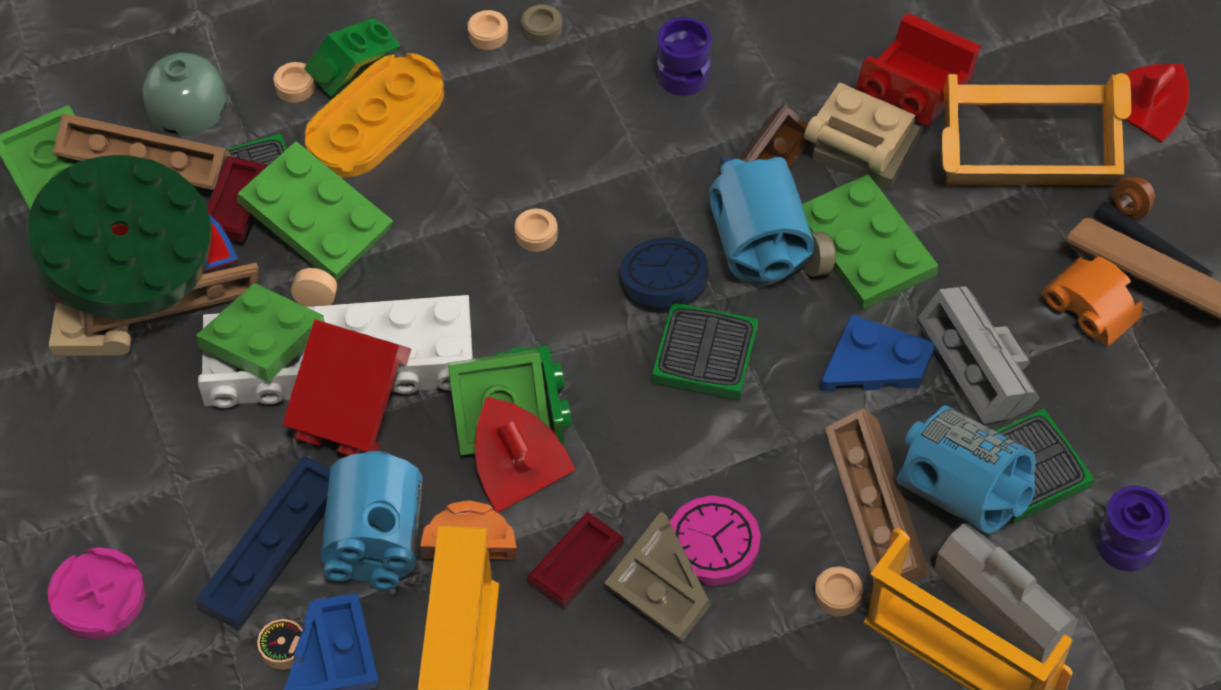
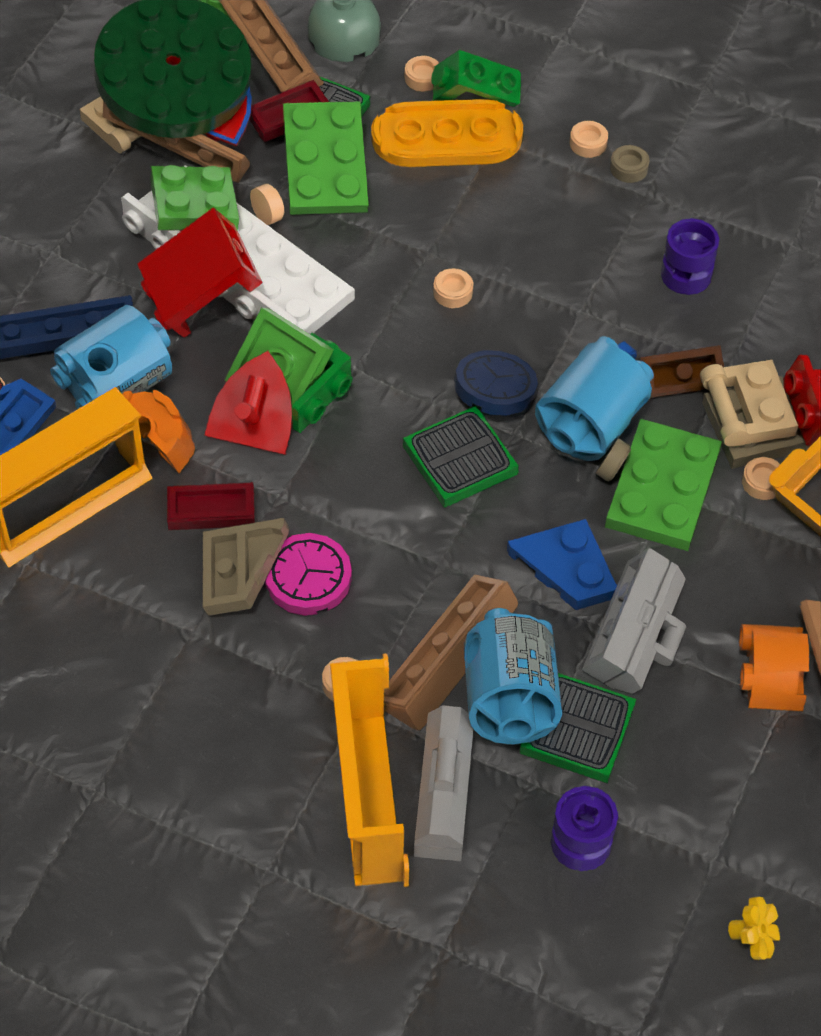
camera: 45 degrees right, 0 degrees up
(922, 176) = (756, 478): none -> light nougat tile

